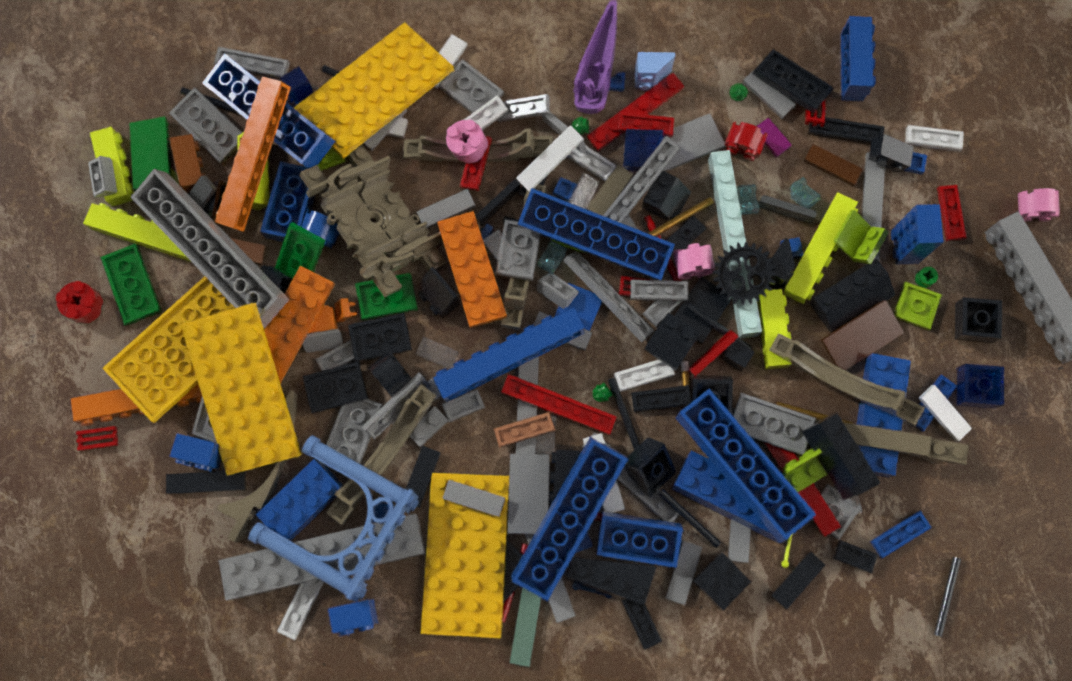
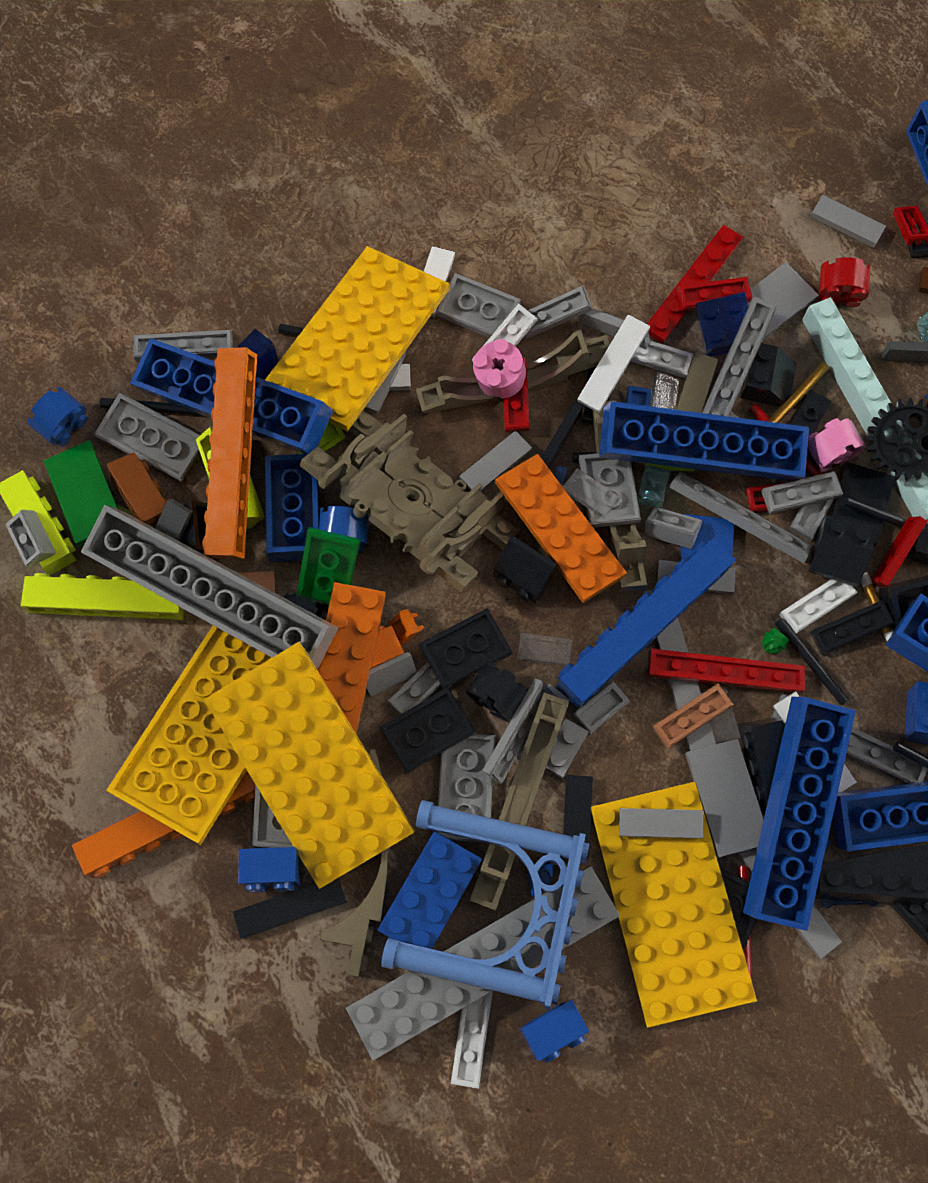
camera: 20 degrees left, 5 degrees down
(79, 302) = (30, 708): red brick -> none
(80, 440) = (115, 881): red tile -> none
(131, 284) = (107, 671): green tile -> none
(146, 94) = (57, 416): none -> blue brick
(374, 305) = (445, 605): green tile -> none
(525, 628) = (781, 976): sand green tile -> none
(581, 125) = (632, 311): green plate -> none
(596, 66) = (629, 244): medium lavender piece -> none
(617, 82) = (658, 254): blue tile -> none
(650, 466) = (875, 715): black slope -> none
(652, 68) = (698, 224): light blue slope -> none
(738, 92) = (811, 228): green plate -> none
(747, 199) = (873, 353): clear light blue bracket -> none
(776, 140) = (880, 276): magenta tile -> none
(793, 81) = (874, 198): black tile -> none

